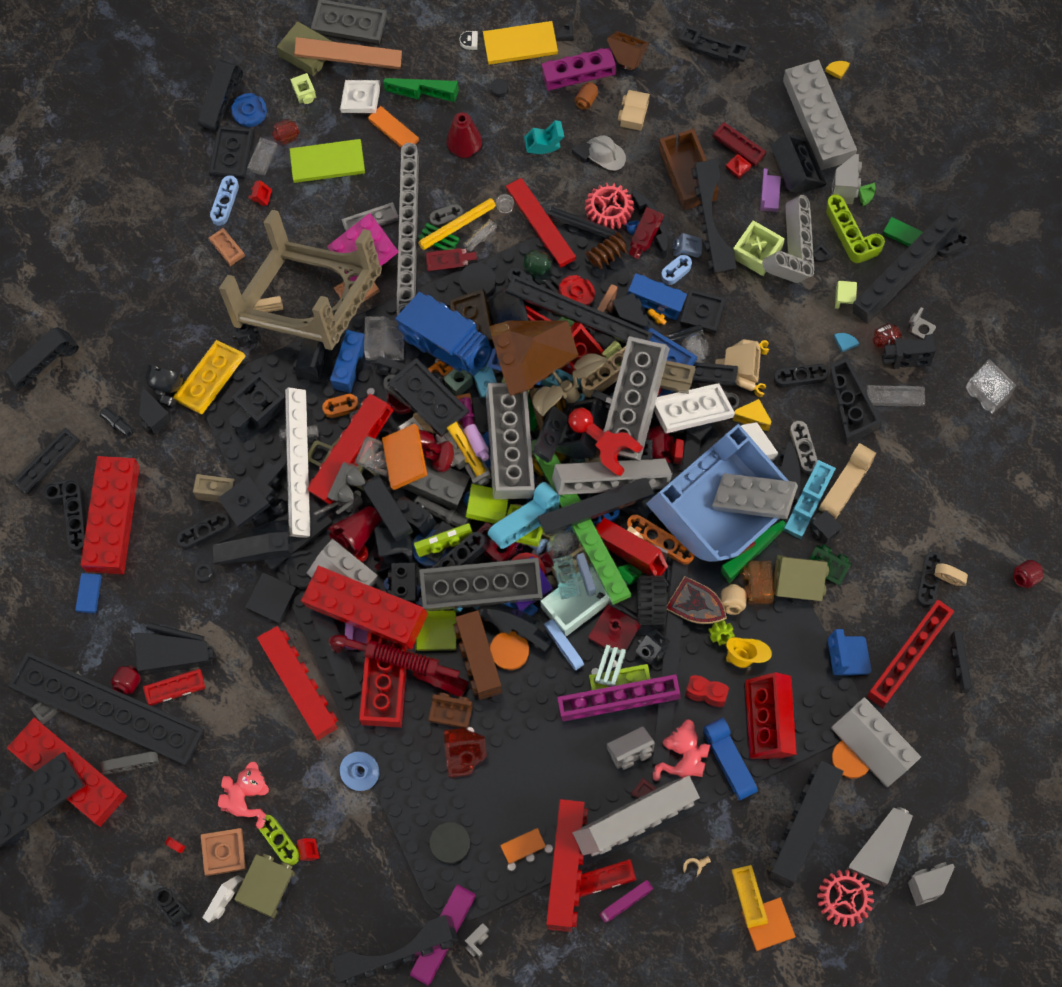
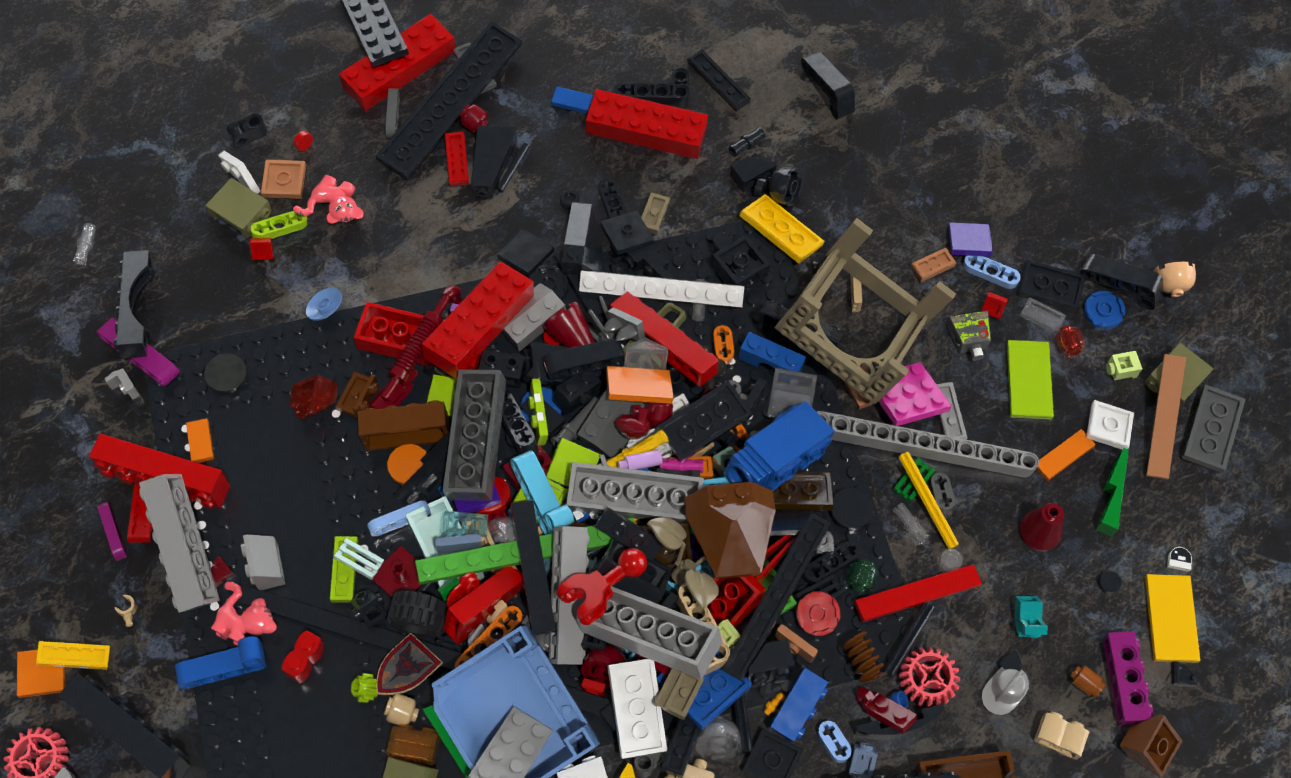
camera: 95 degrees right, 5 degrees down
(196, 219) = (970, 239): none -> tile
(213, 52) = (1177, 277): none -> light nougat cylinder
(293, 208) = (970, 333): none -> torso
(297, 682) = (430, 263): red brick -> none
(448, 259) = (885, 485): dark red hinge -> none
(619, 697) = (319, 560): magenta brick -> none
(620, 558) = (467, 583): none -> red plate
(747, 651) = (334, 711): yellow piece -> none
(770, 716) = (255, 721): red slope -> none

